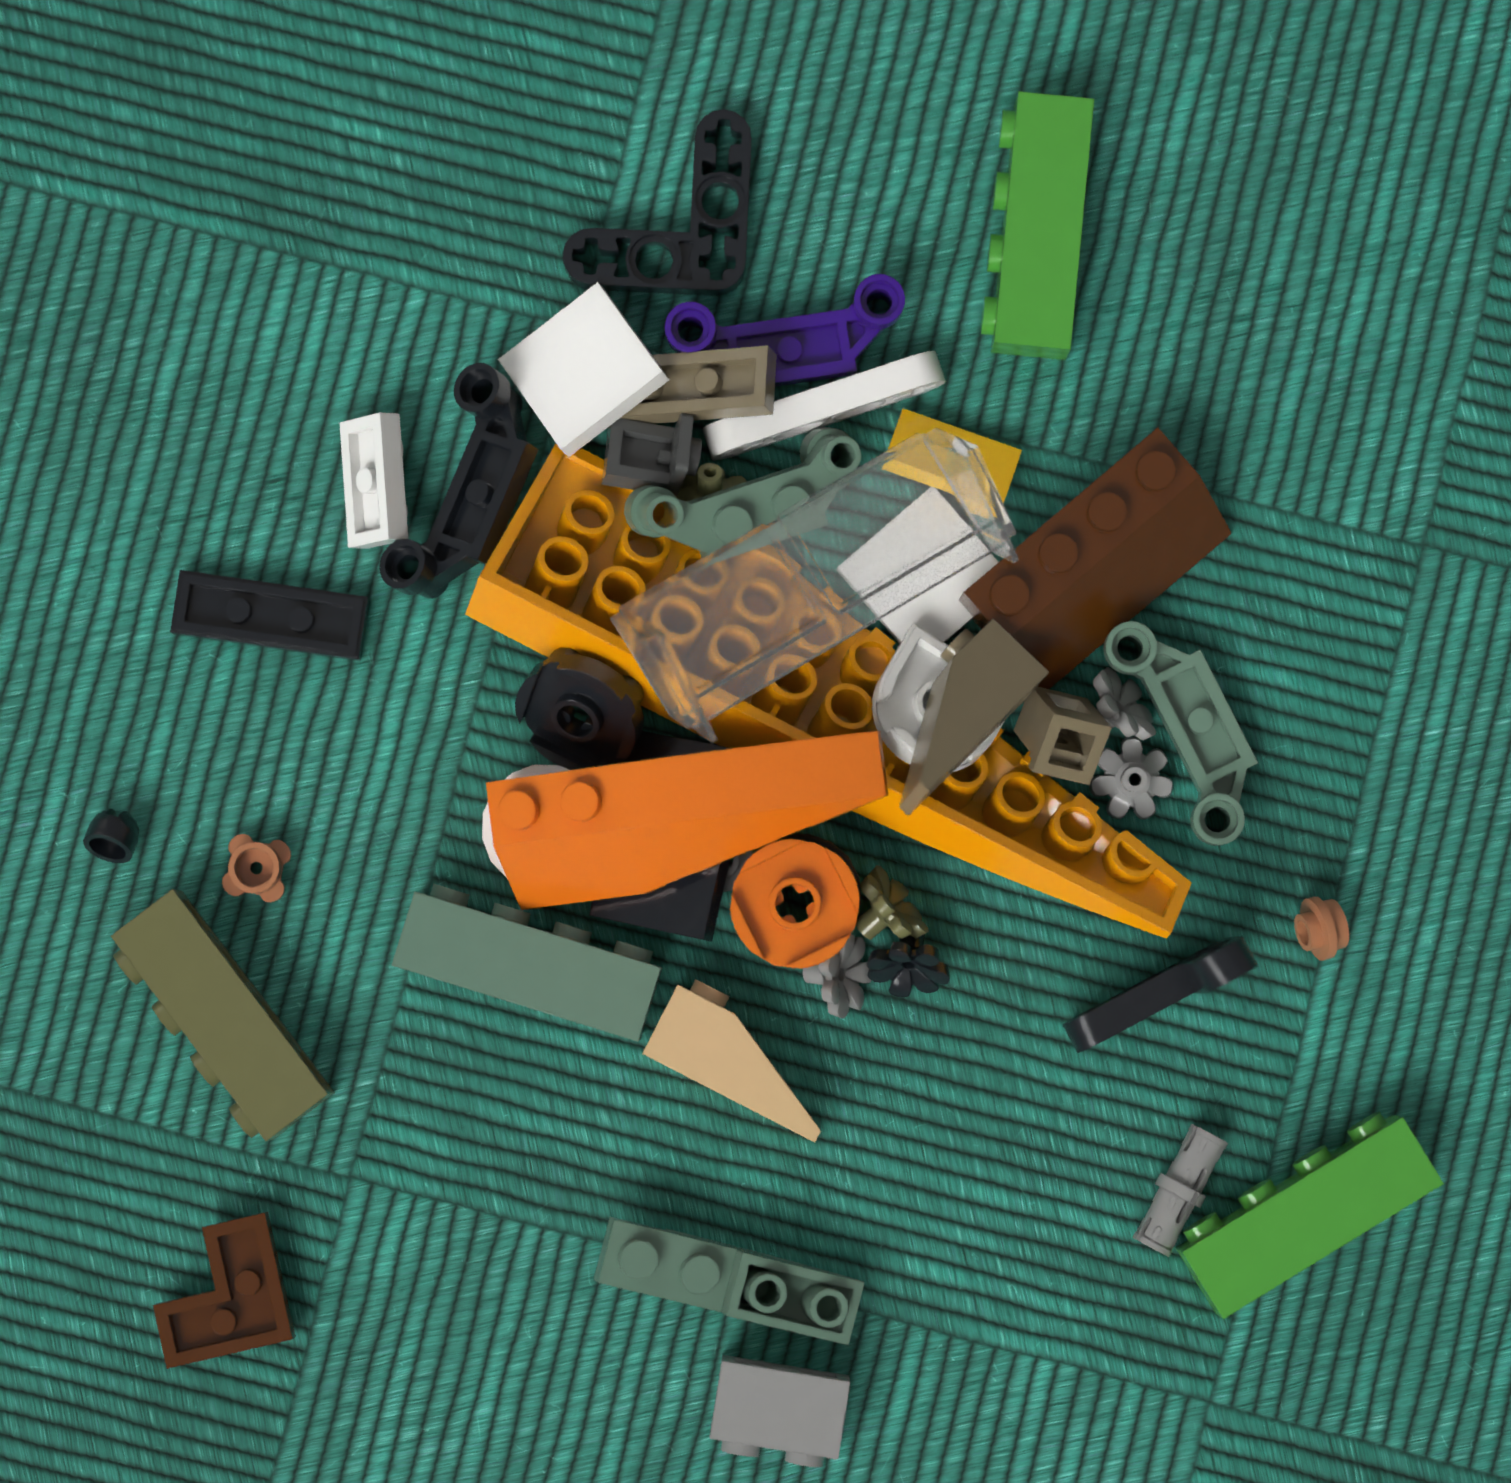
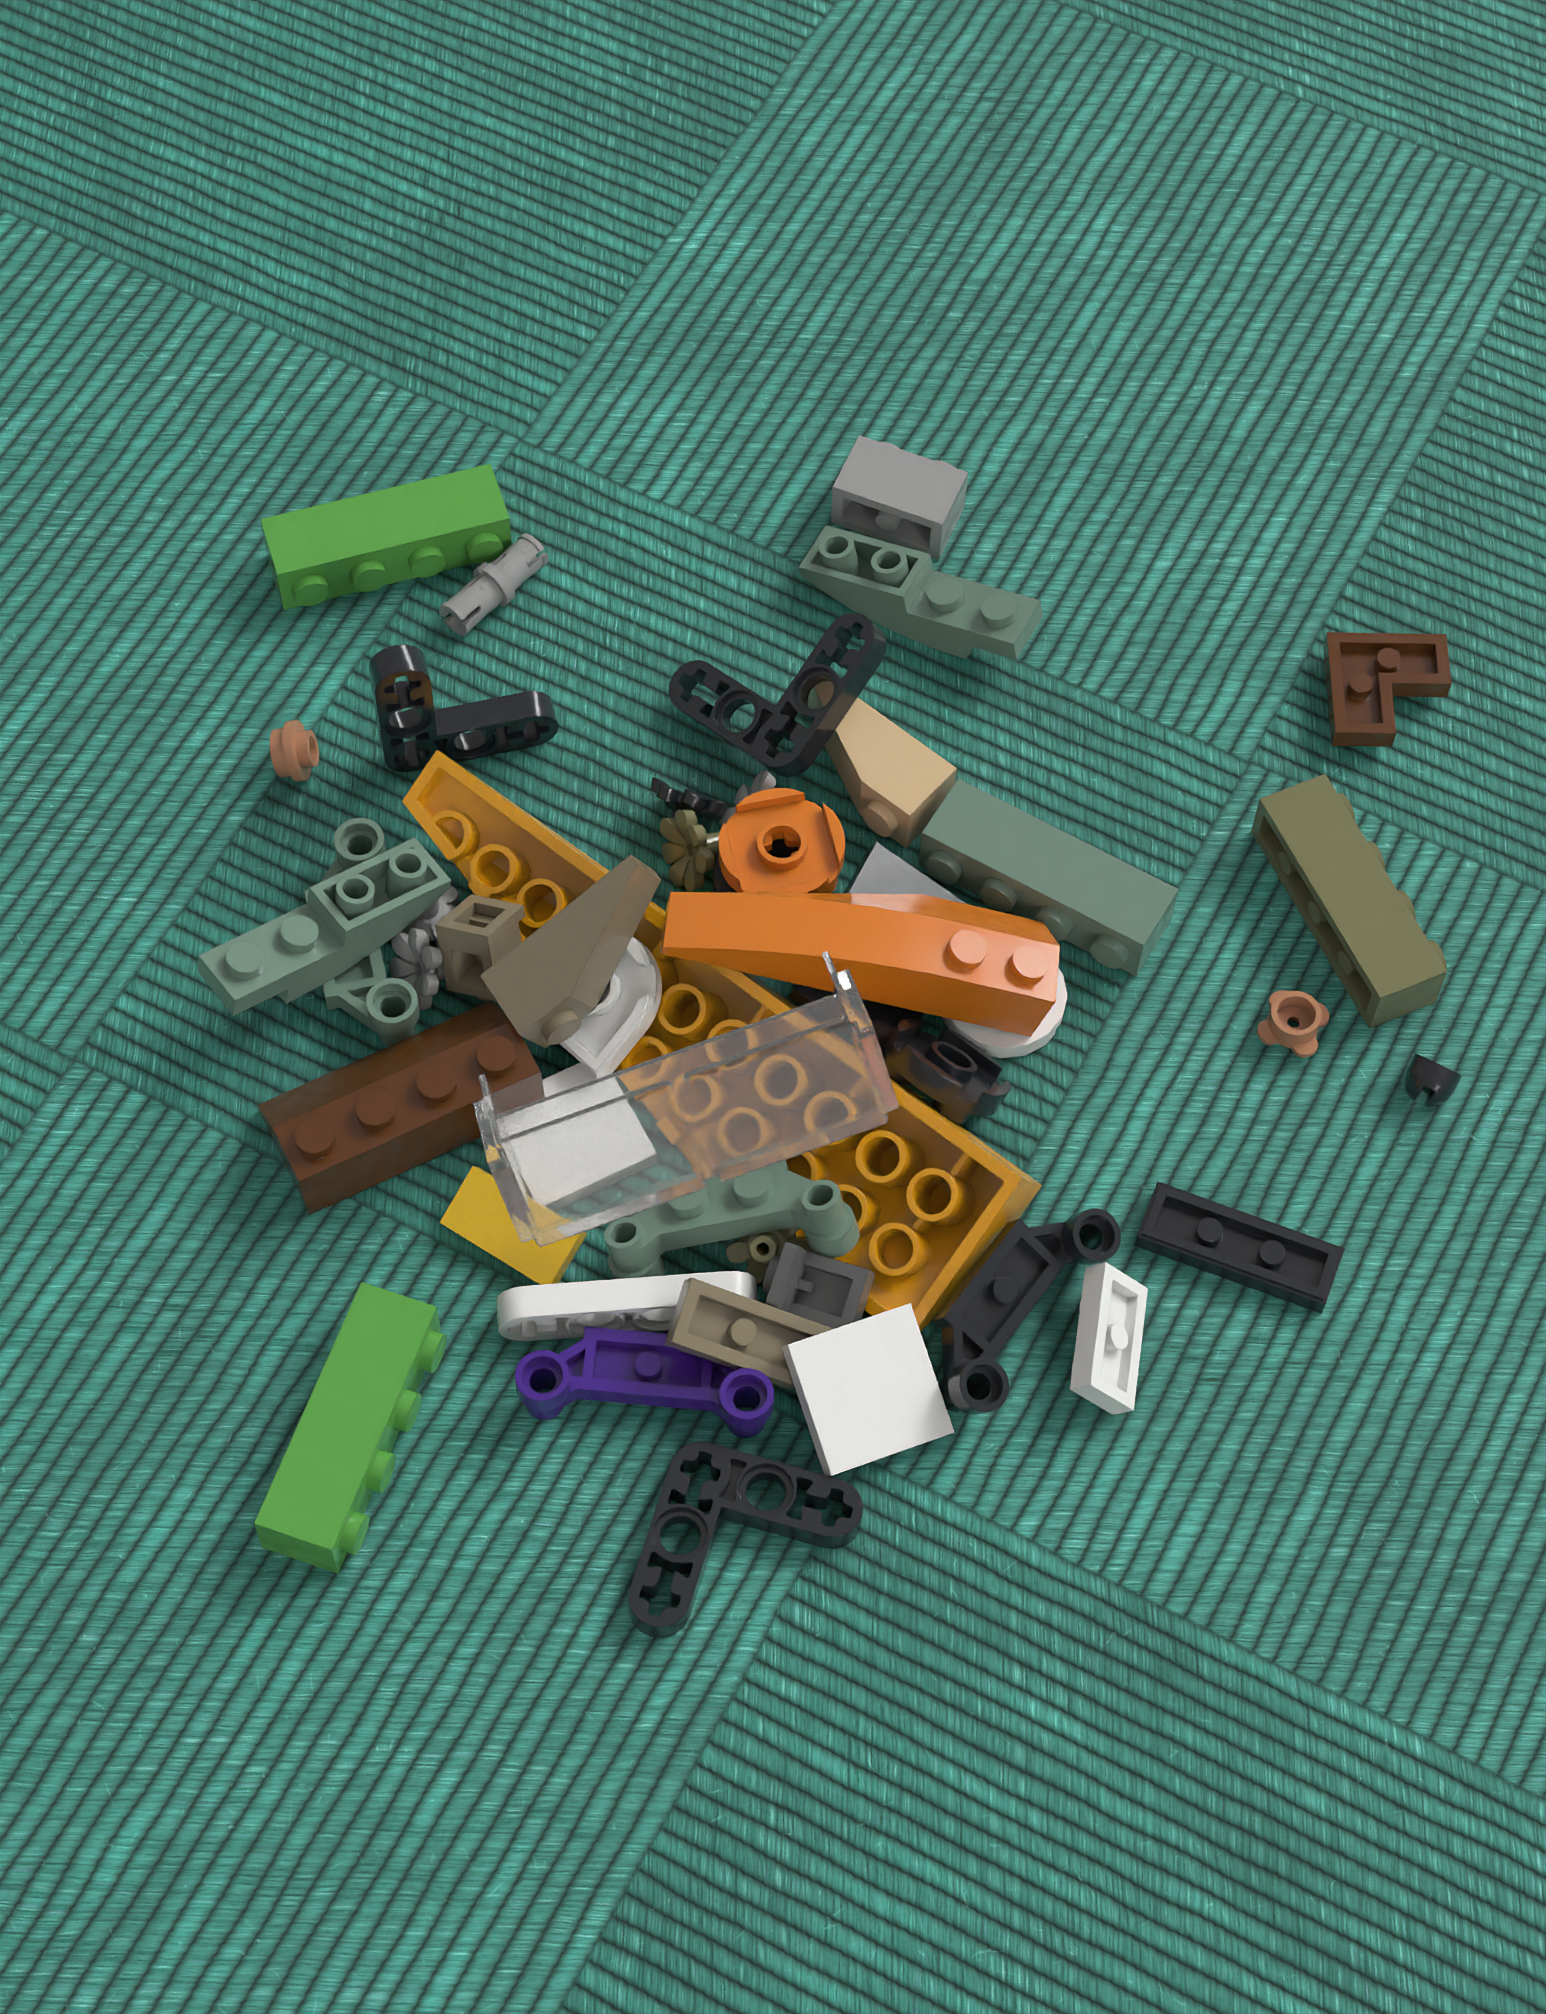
camera: 170 degrees left, 25 degrees down
(841, 1071) = (777, 721): none -> black beam
(1218, 703) = (332, 932): none -> sand green slope

